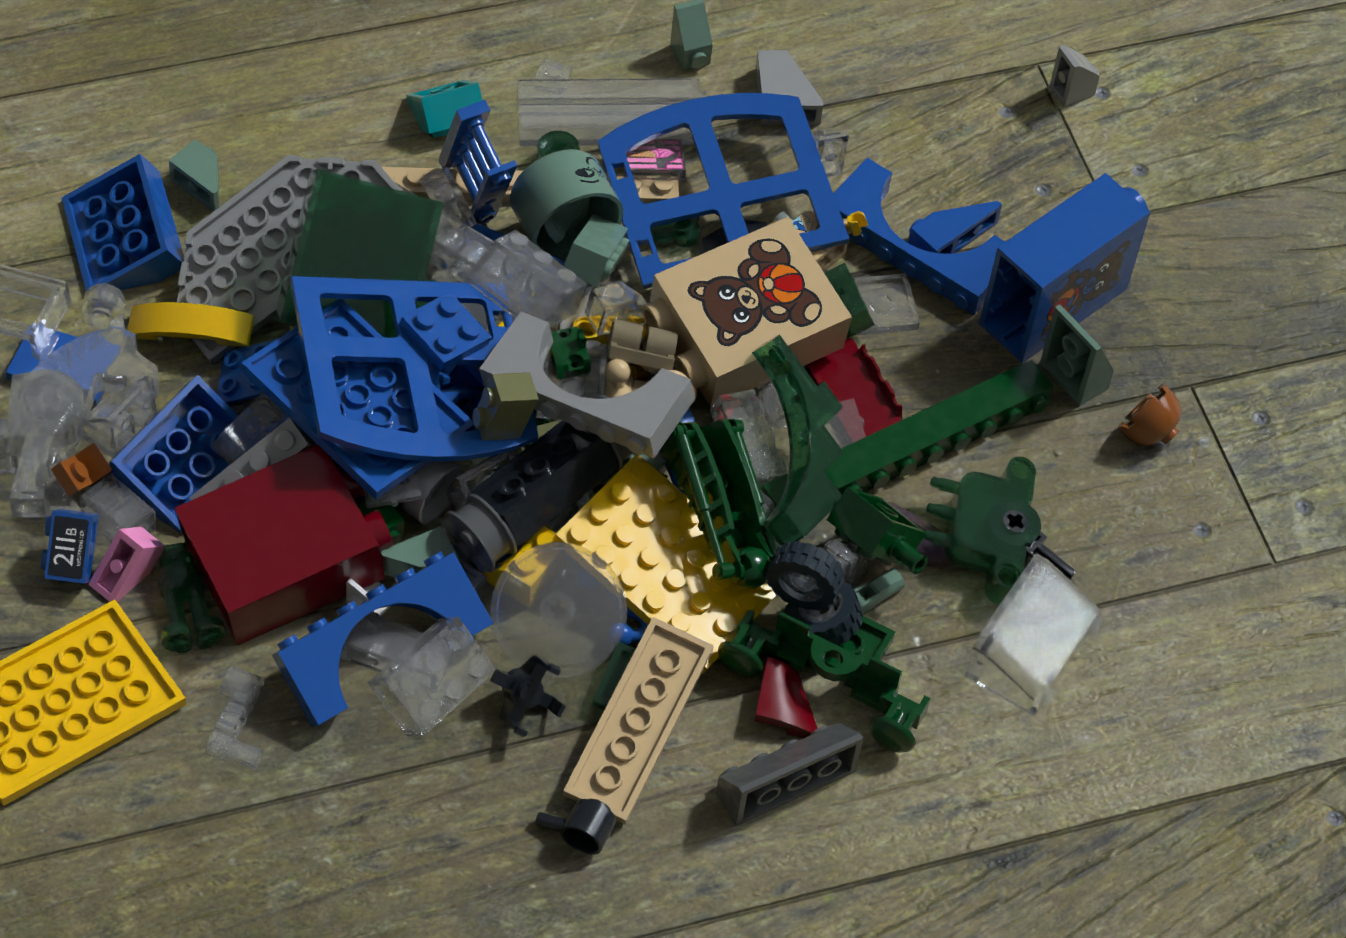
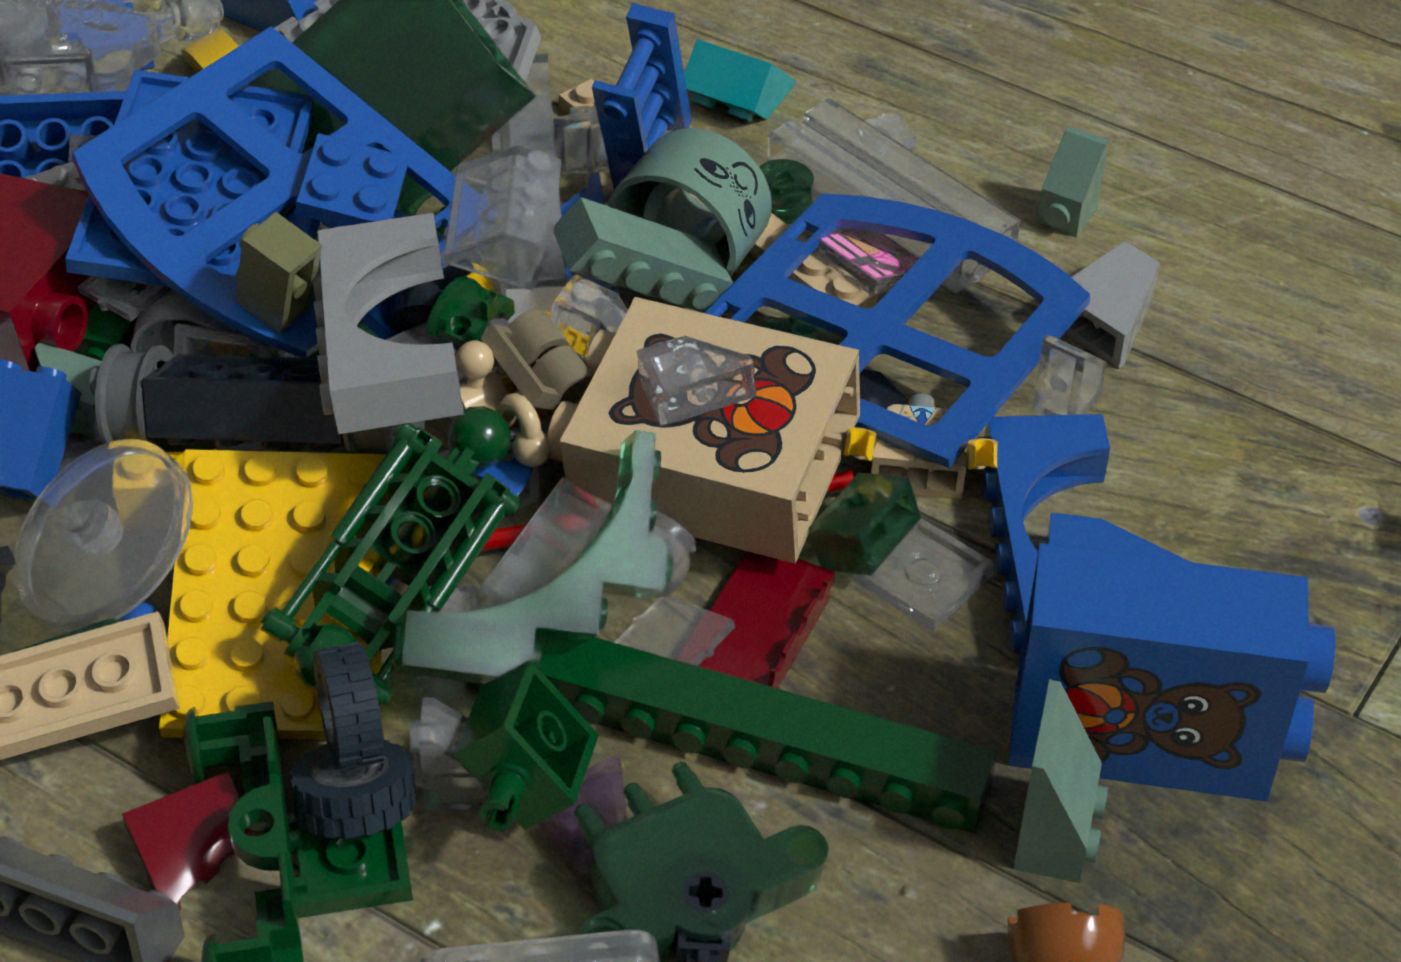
camera: 55 degrees right, 10 degrees down
(744, 295) = (693, 378): none -> clear slope
(879, 589) = (453, 827): sand green bar -> none

